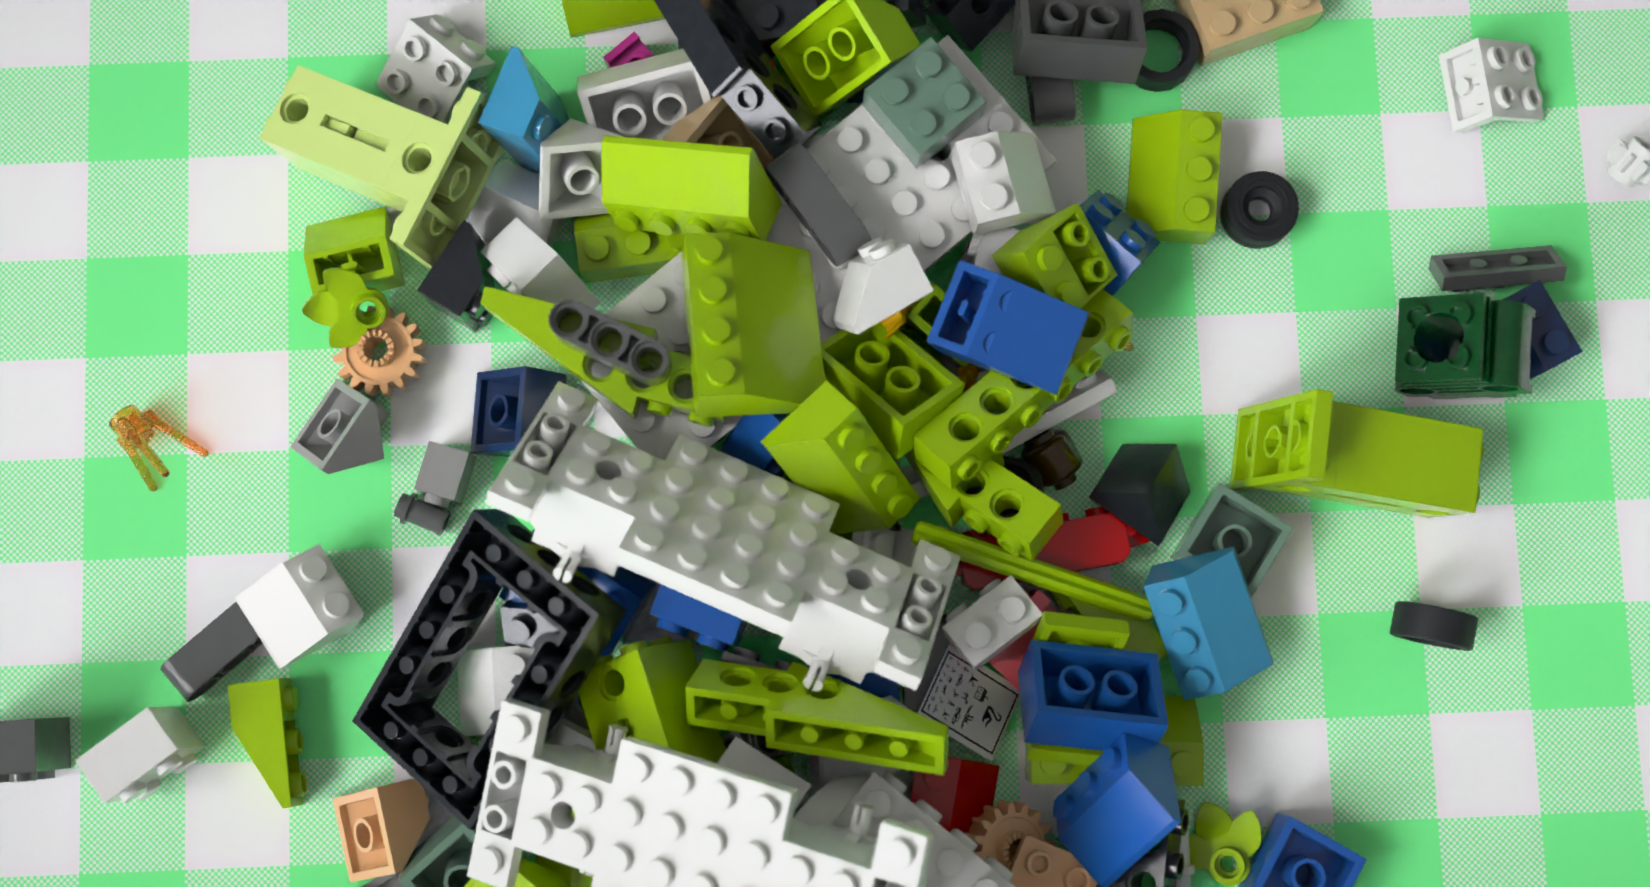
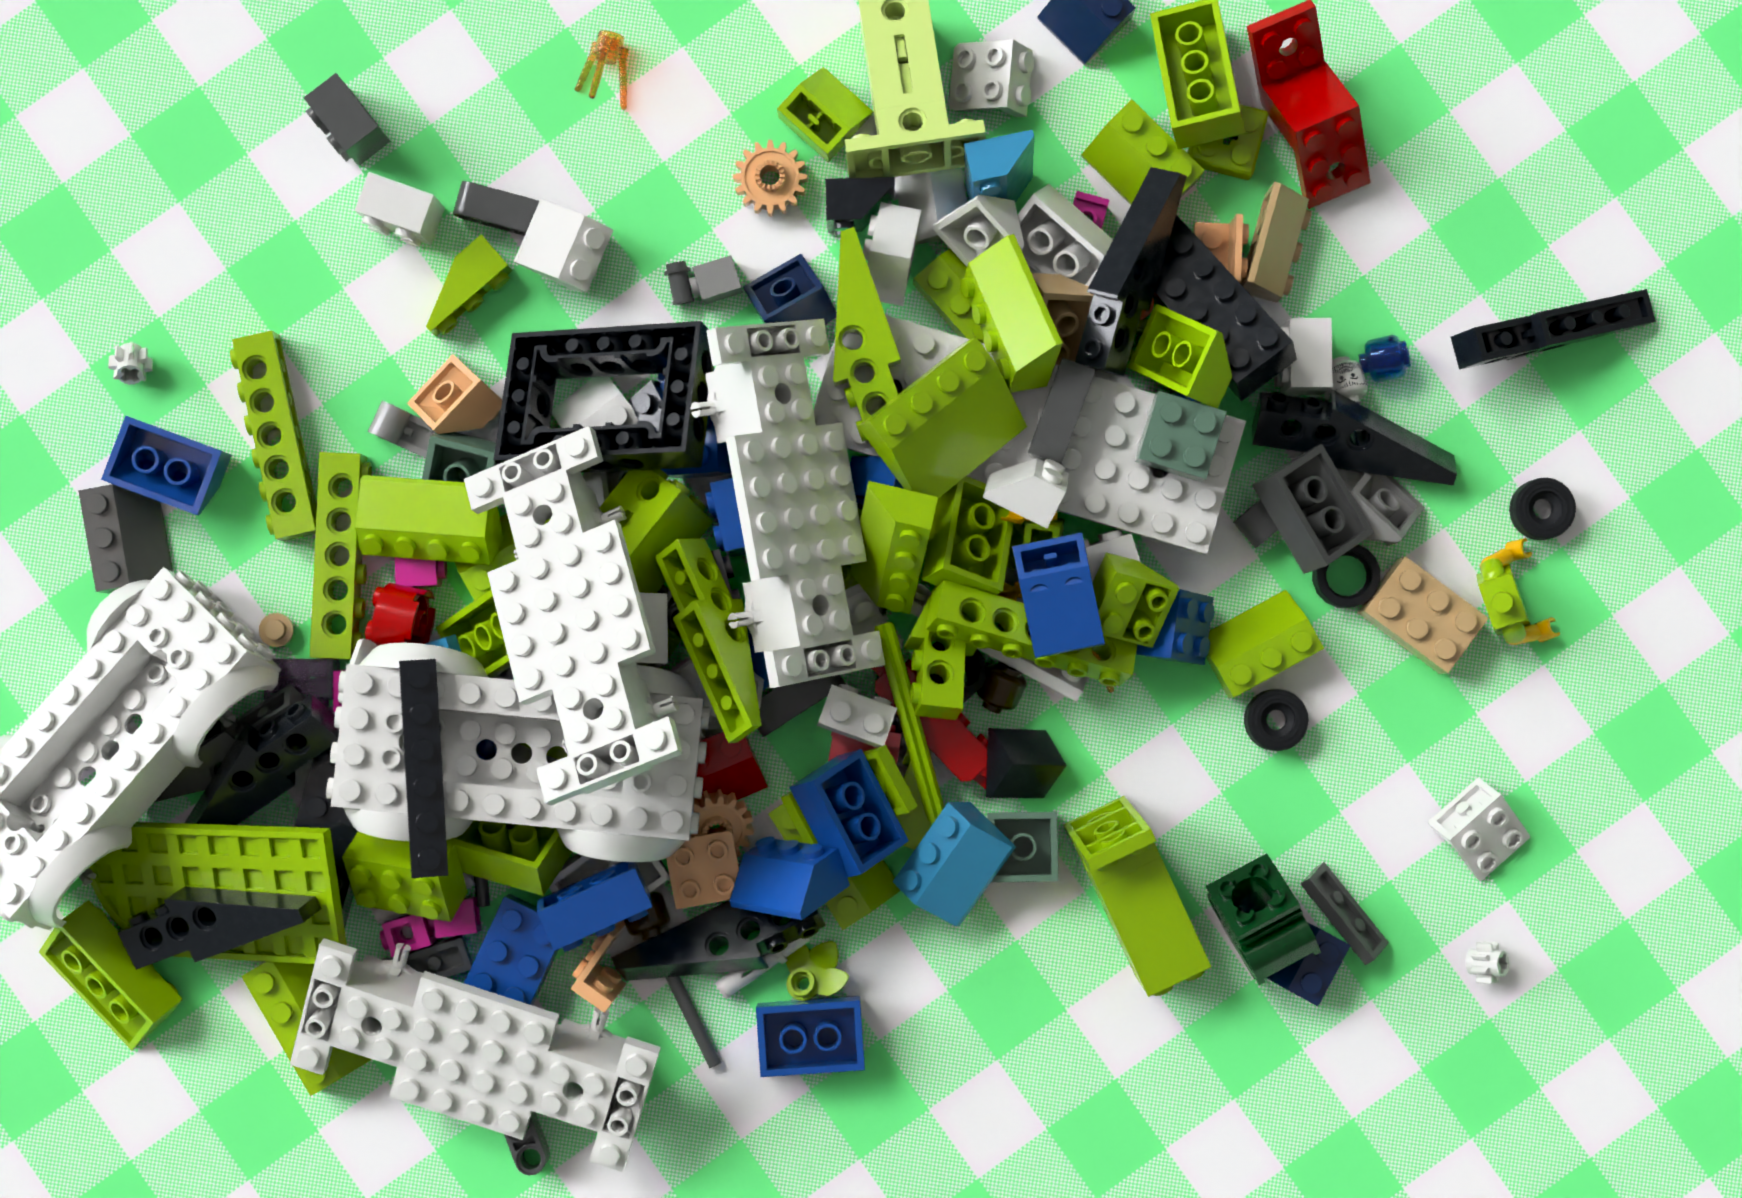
camera: 65 degrees right, 5 degrees up
(340, 304) = (780, 133): lime plate -> none
(342, 431) = (699, 190): light grey slope -> none
(595, 327) = (869, 320): dark grey beam -> none
(970, 703) = (793, 739): white sticker -> none
(1001, 180) = (1163, 526): white slope -> none
(1434, 625) = (1056, 1021): black tyre -> none

